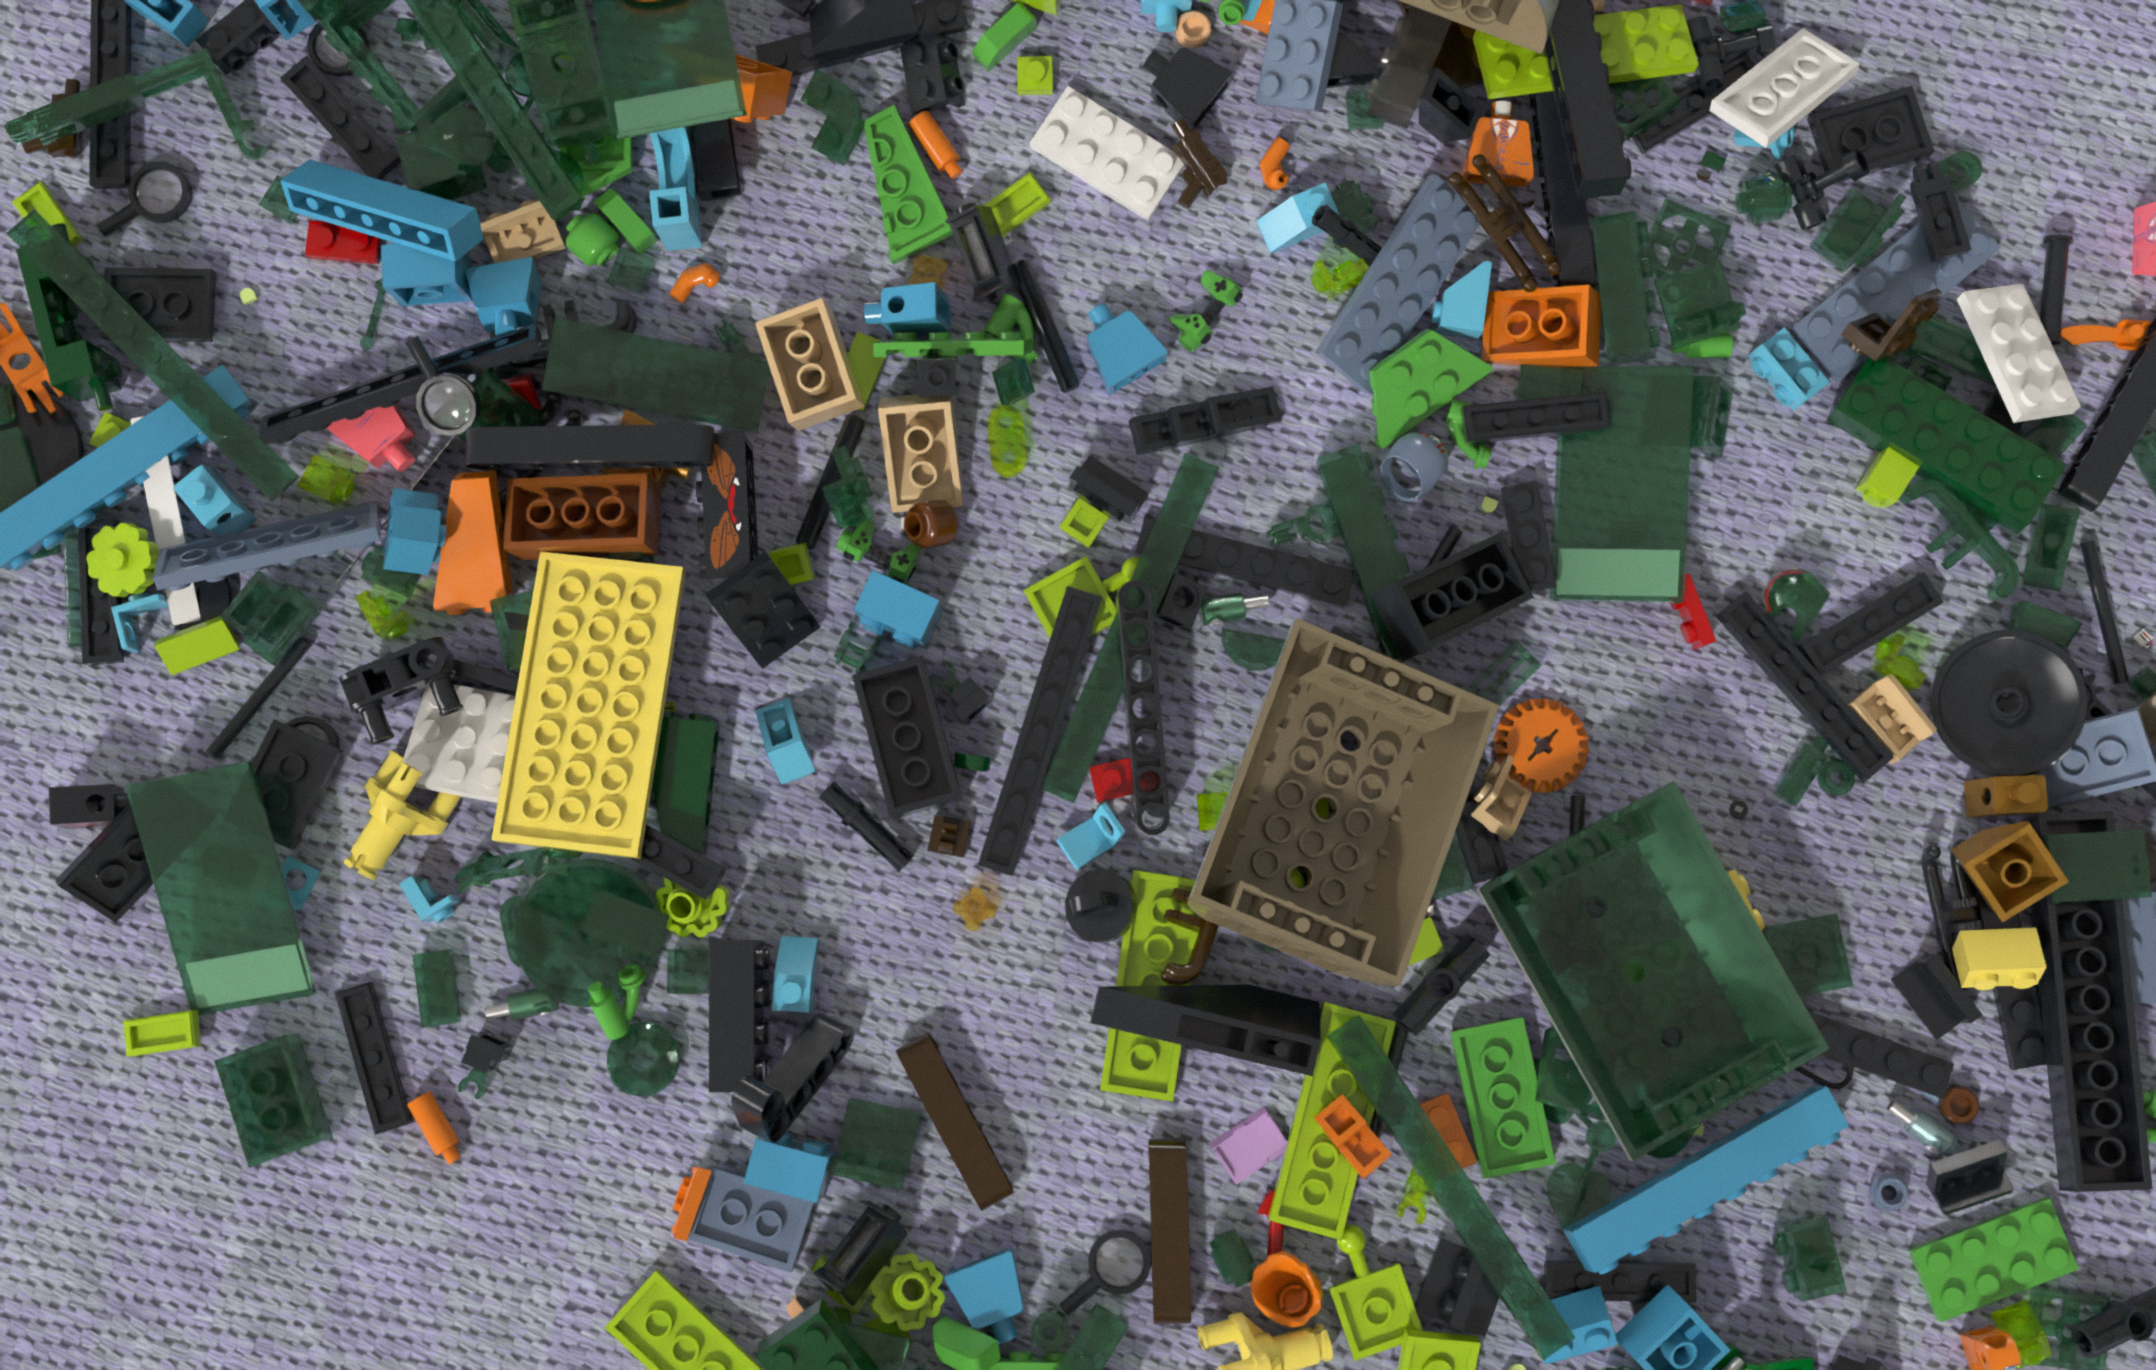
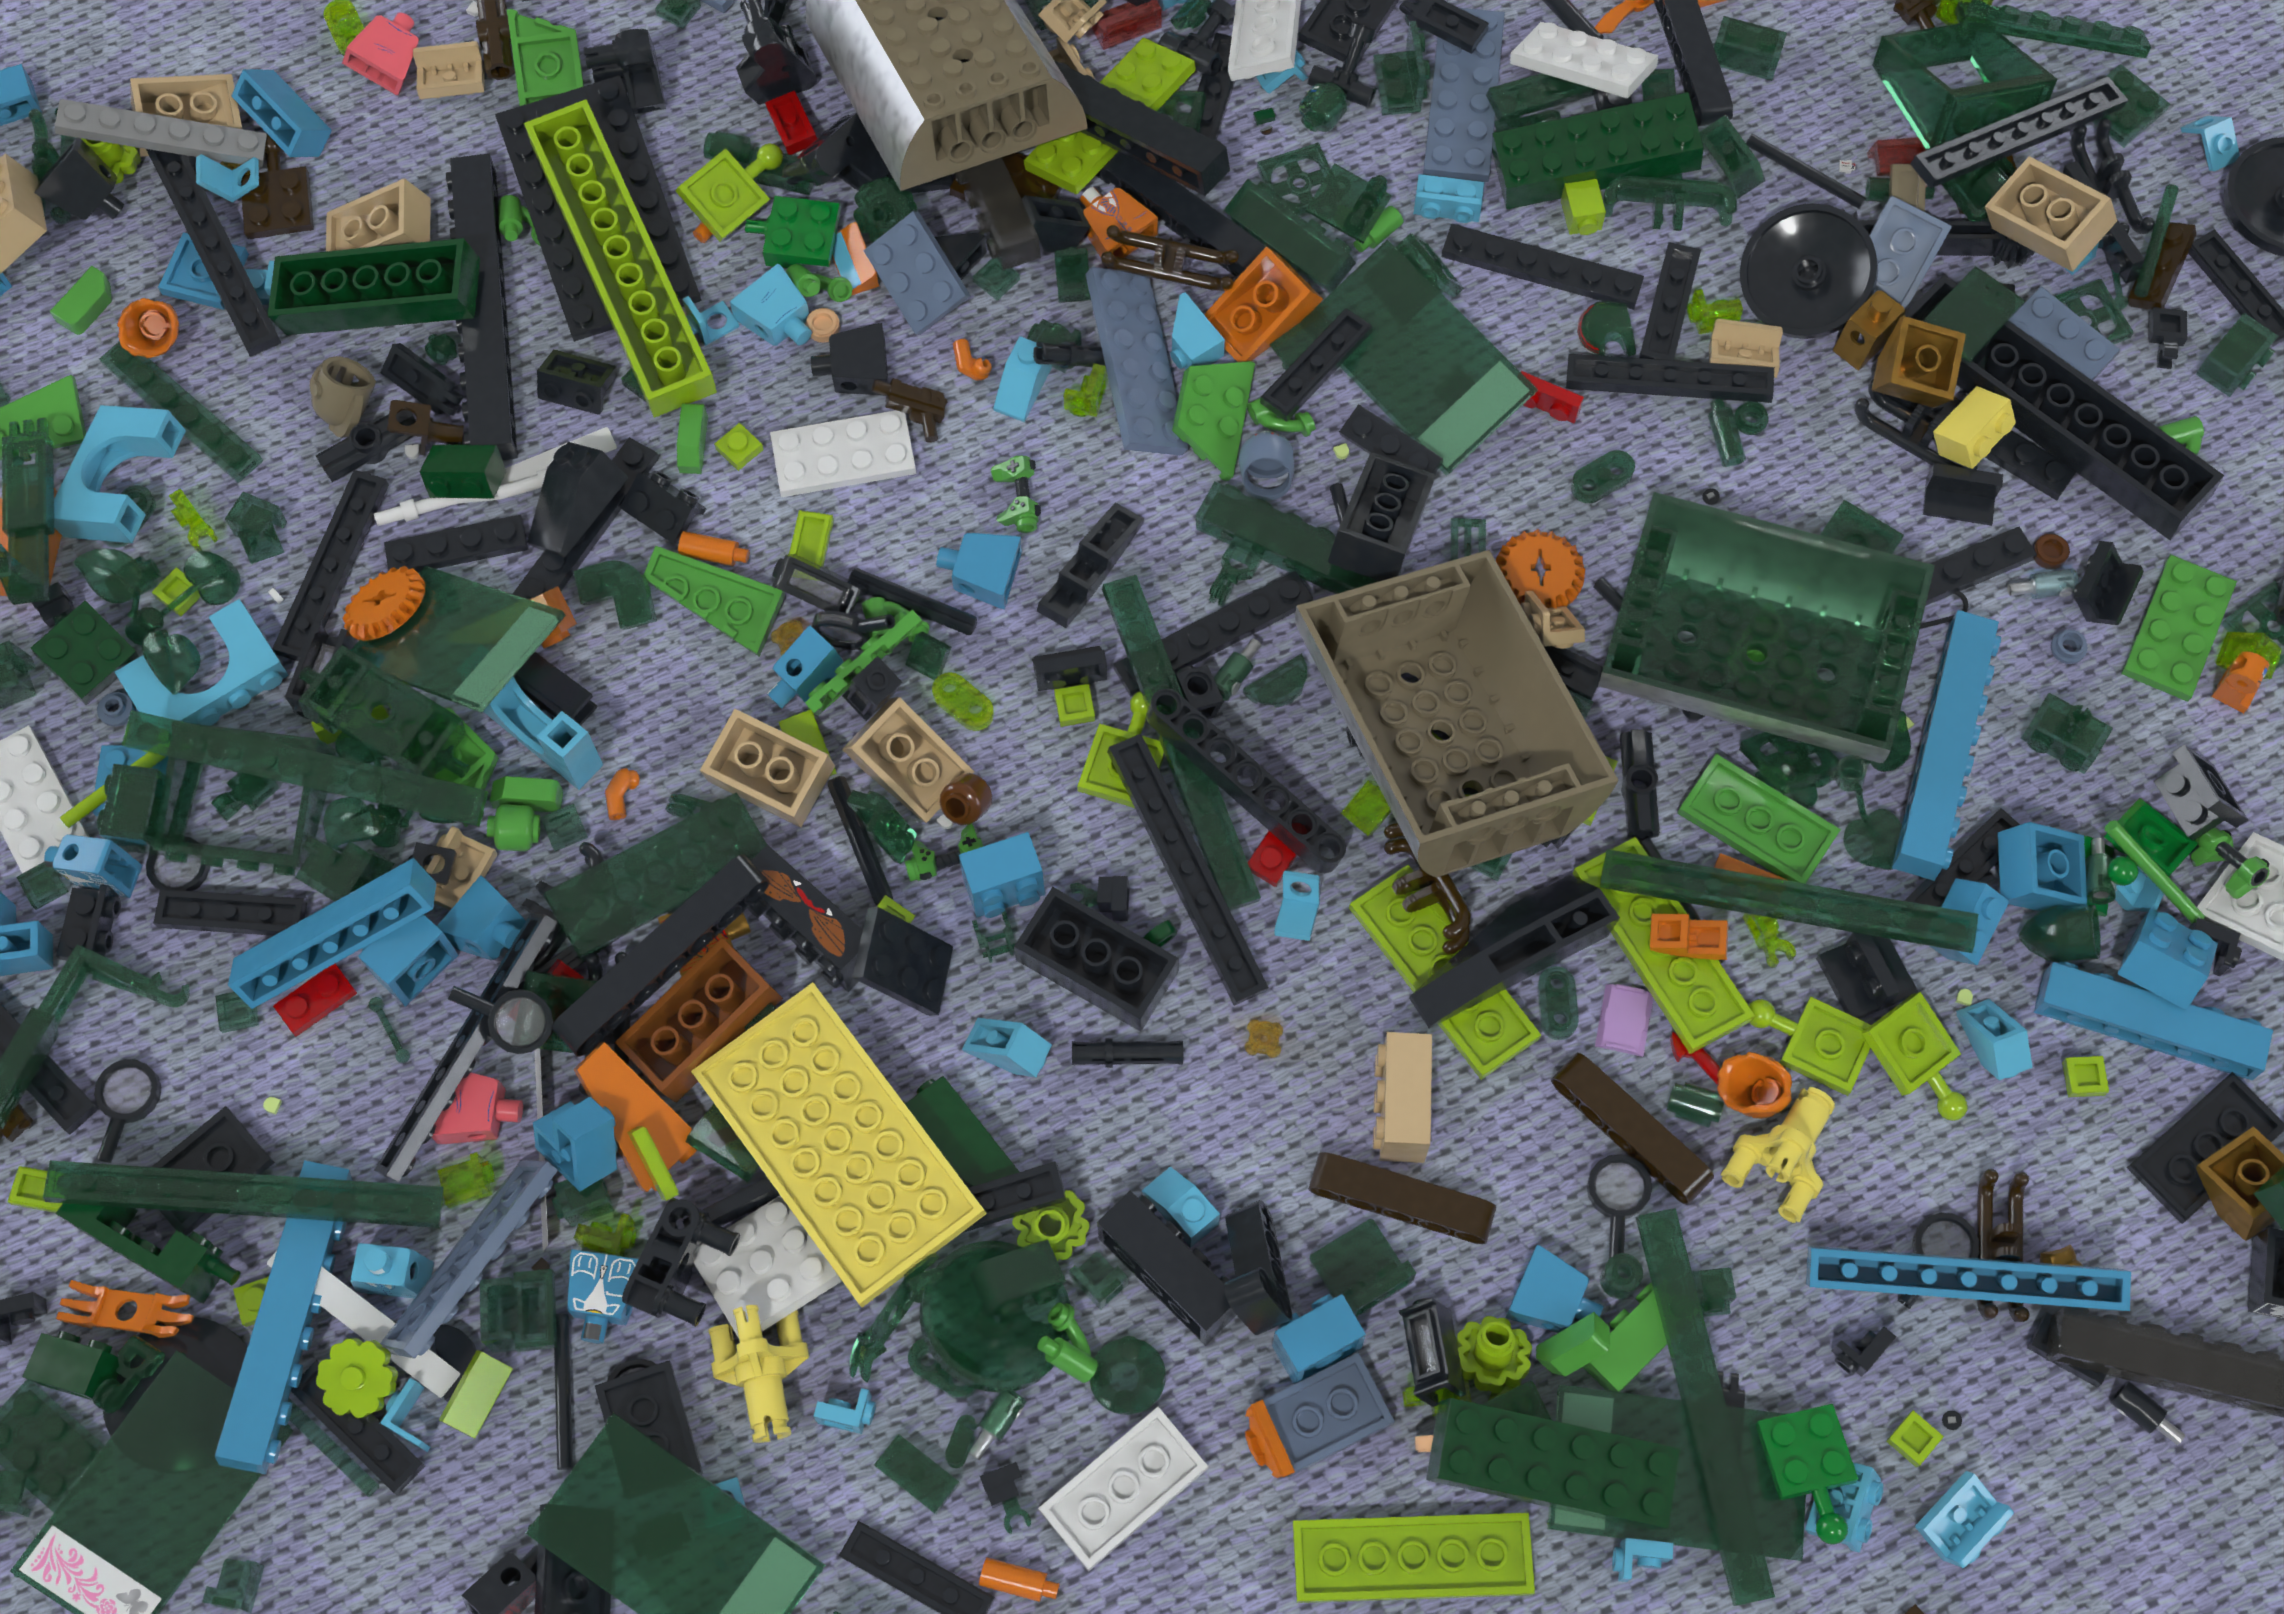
camera: 45 degrees left, 15 degrees down
(324, 593) = (541, 1264): none -> dark brown piece
(341, 647) = (597, 1291): none -> dark azure torso
(450, 597) = (653, 1163): none -> lime tile
(486, 995) = (961, 1441): none -> clear green piece
(501, 203) = (422, 855): none -> black bracket
(565, 1134) = (1123, 1488): none -> white plate
(949, 836) = (1194, 1005): dark brown tile -> none
(969, 308) = (847, 630): none -> black piece
(1022, 1054) = (1403, 1097): none -> tan brick
(1101, 906) = (1352, 949): black tile -> none
(1211, 1086) = (1557, 1001): none -> plate
(1425, 159) = (1070, 270): none -> clear green bracket
(1667, 716) = (1600, 477): none -> clear green plate
(1804, 497) = (1541, 266): none -> black plate
(1879, 338) = (1484, 122): dark brown bracket -> none
(2043, 622) = (1773, 201): clear green piece -> none

